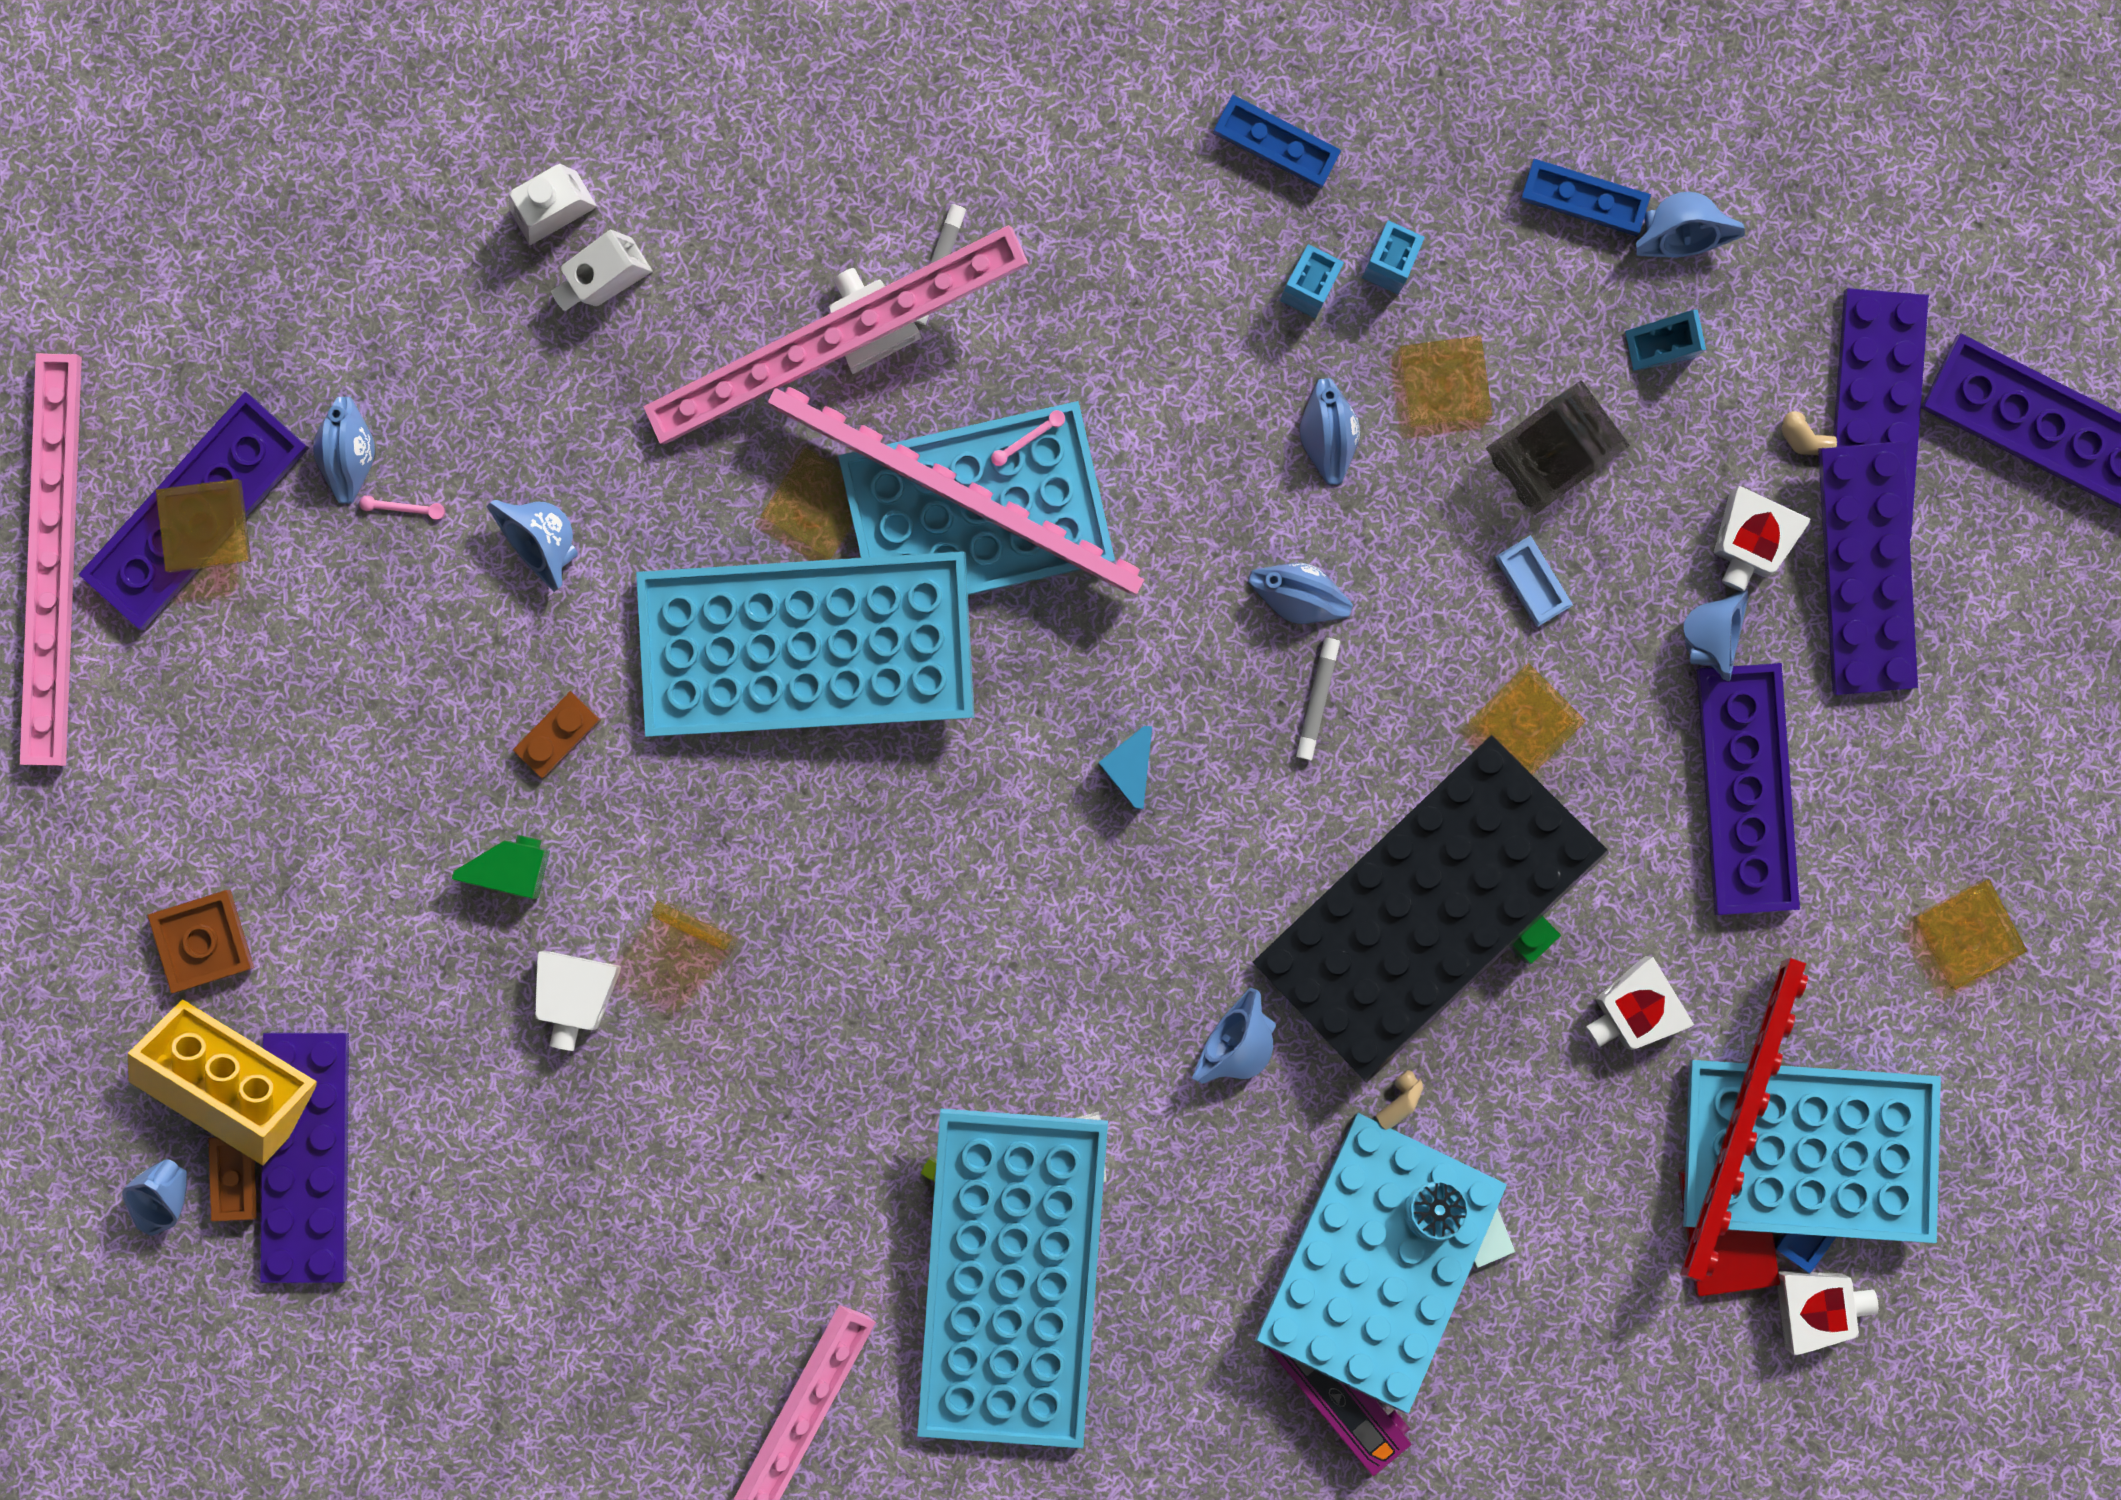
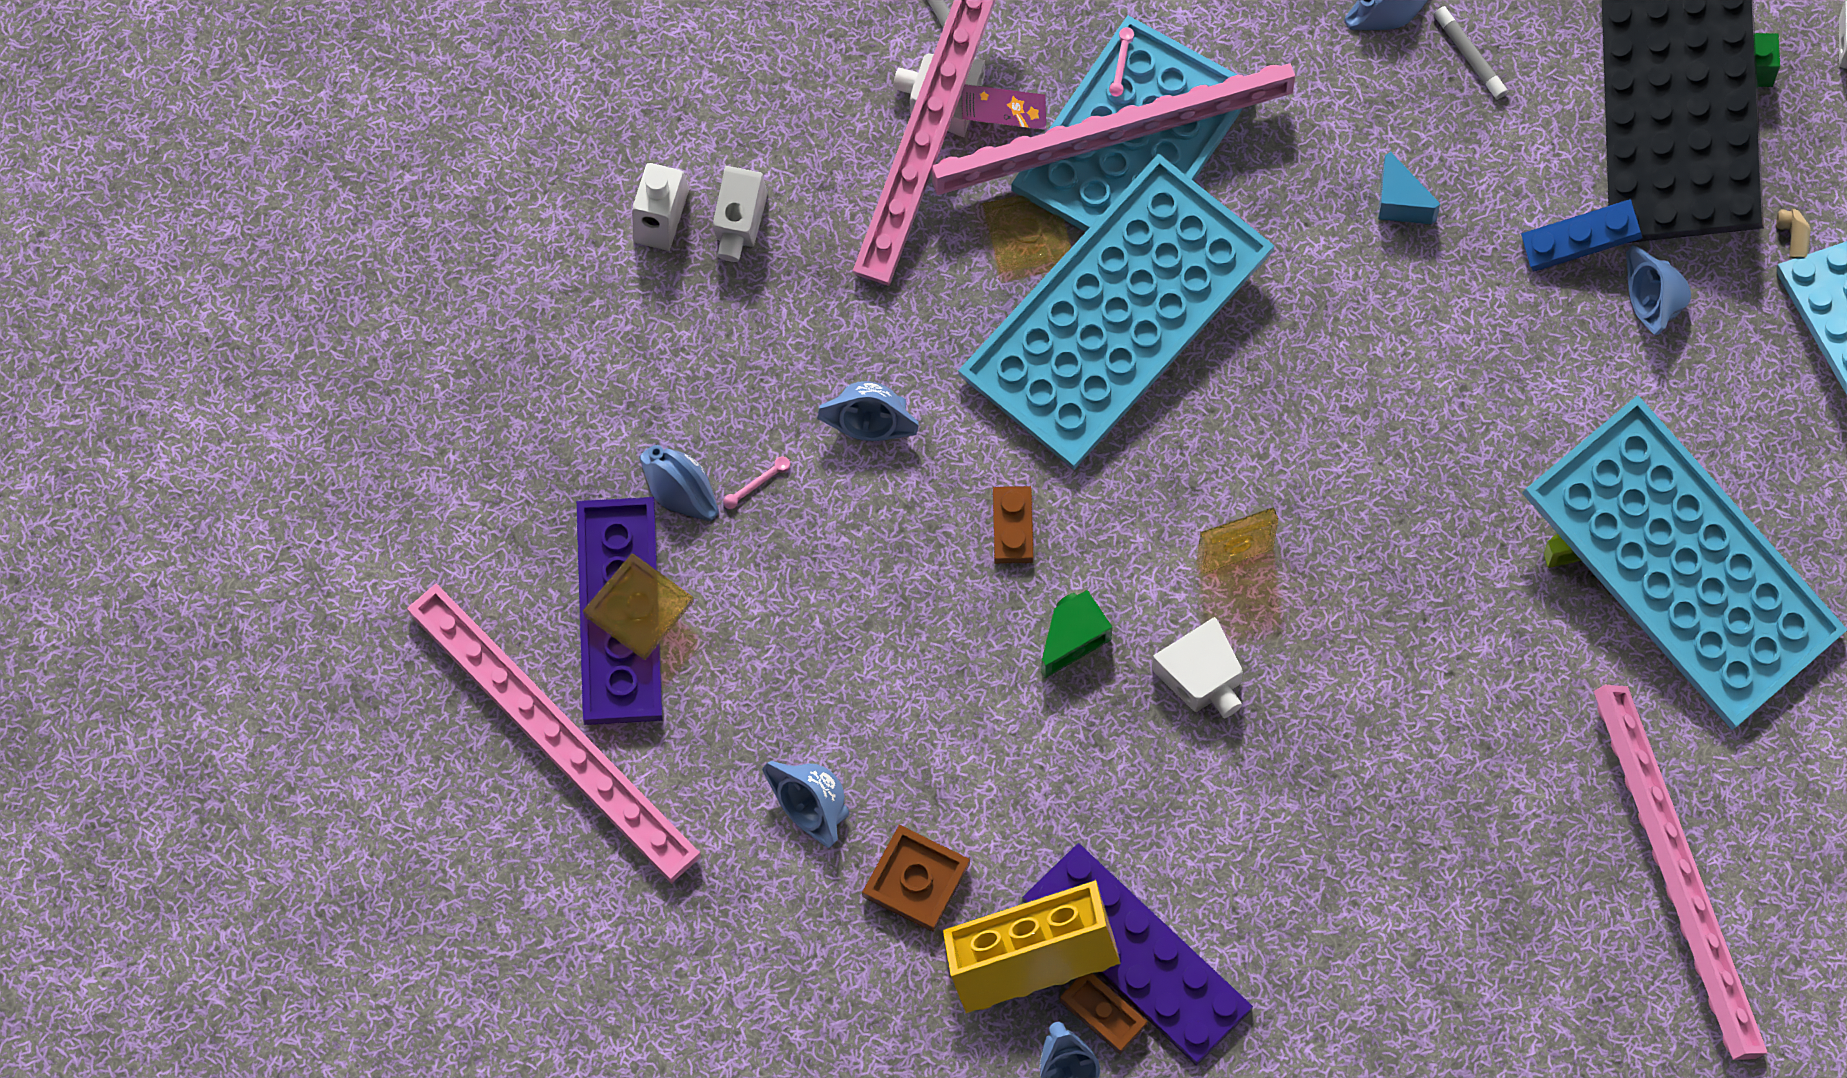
camera: 35 degrees left, 20 degrees down
(188, 805) = (809, 797): none -> medium blue hat
(899, 384) = (1004, 107): none -> magenta sticker
(1230, 940) = (1581, 235): none -> blue plate

